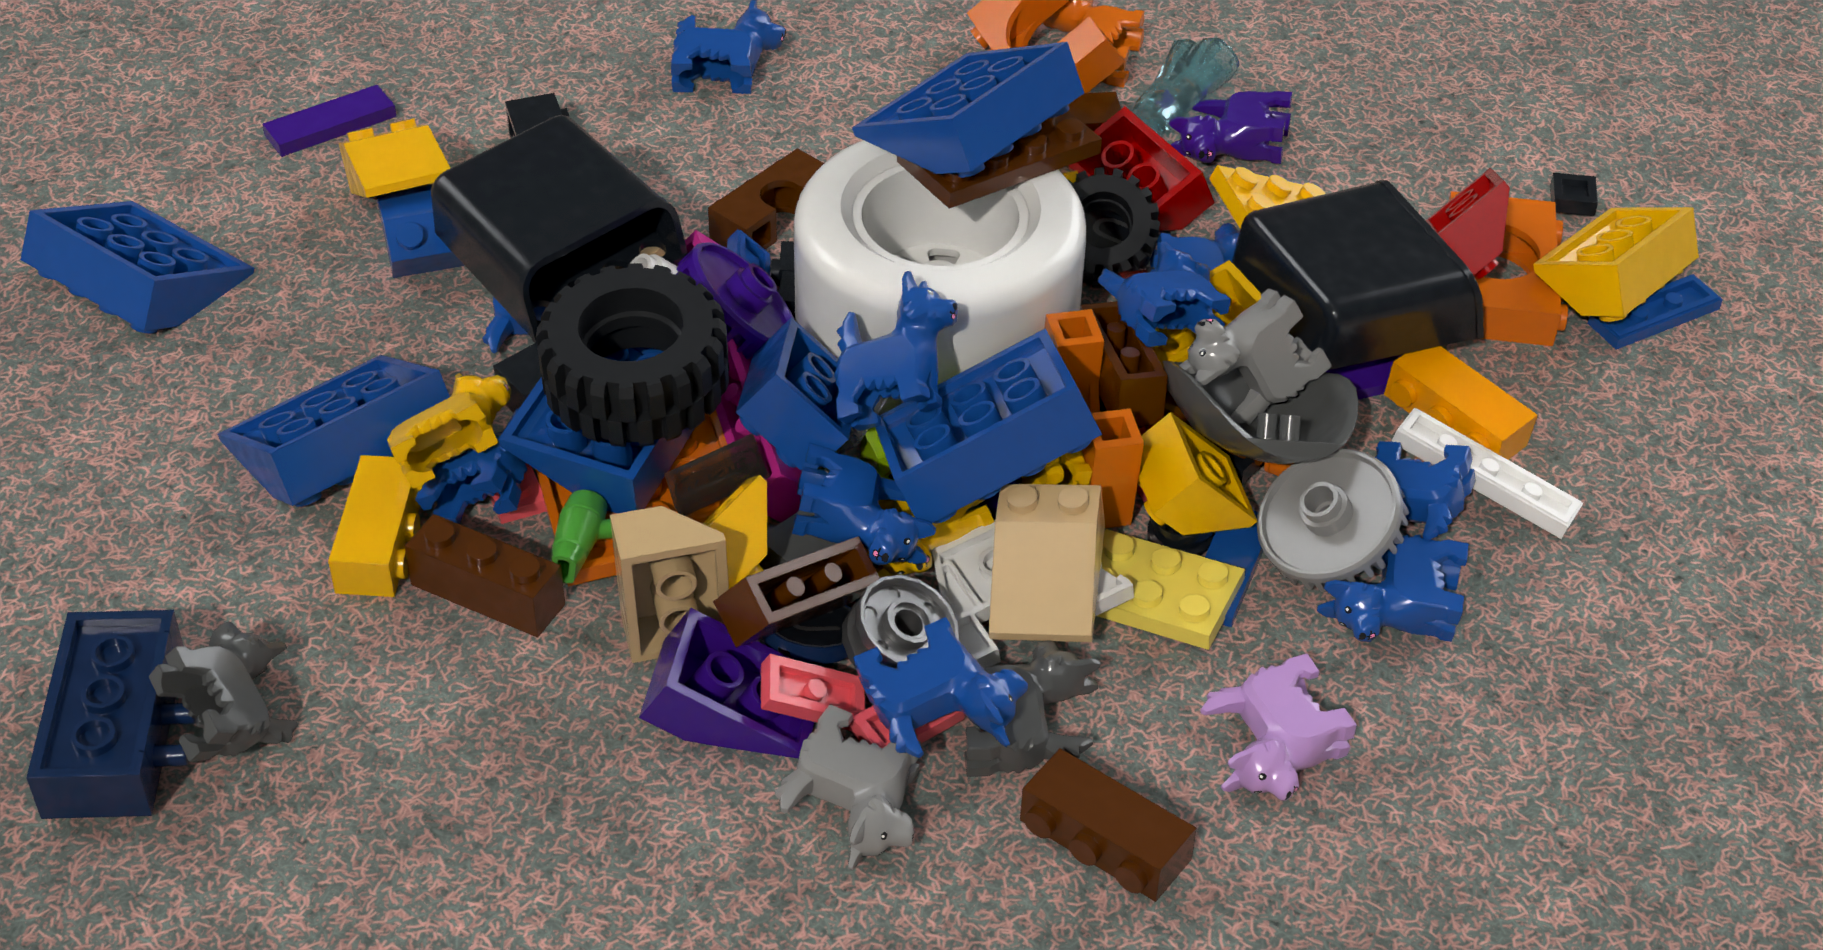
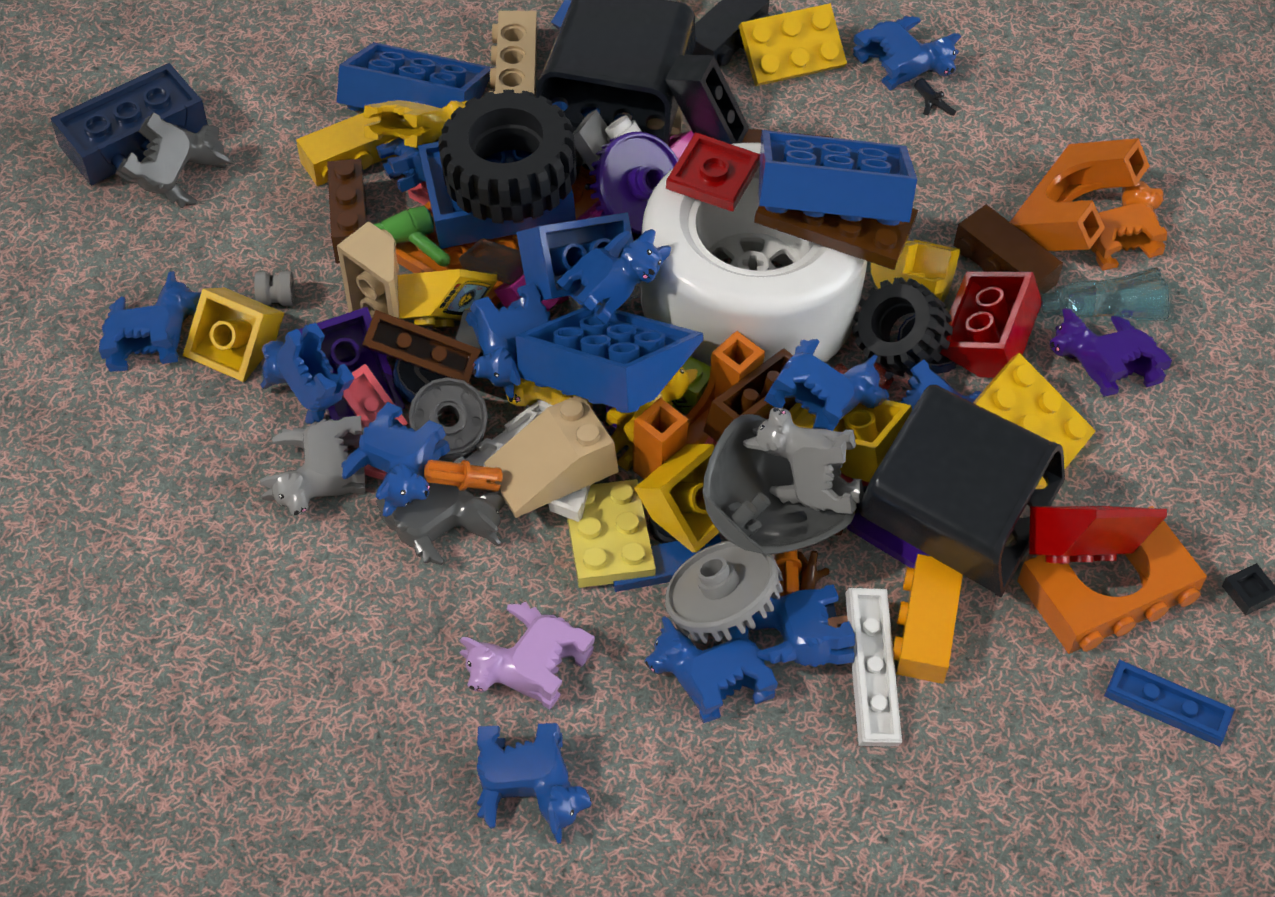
camera: 55 degrees right, 10 degrees up
(409, 326) = (515, 52): none -> tan brick
(477, 857) = (149, 327): none -> blue animal
(533, 706) = (275, 288): none -> light grey wheel
(569, 776) = (231, 332): none -> yellow slope
(631, 112) = (792, 44): none -> yellow plate
(691, 184) = (706, 98): none -> black brick
(730, 710) = (305, 370): none -> blue animal
(796, 69) = (932, 97): none -> black bar
(851, 200) = (713, 172): none -> red tile
(1017, 642) = (463, 475): none -> orange axle
(1107, 825) = (378, 604): reddish brown brick -> none
(1431, 799) = (527, 772): none -> blue animal
(1621, 259) = (1181, 647): yellow slope -> none

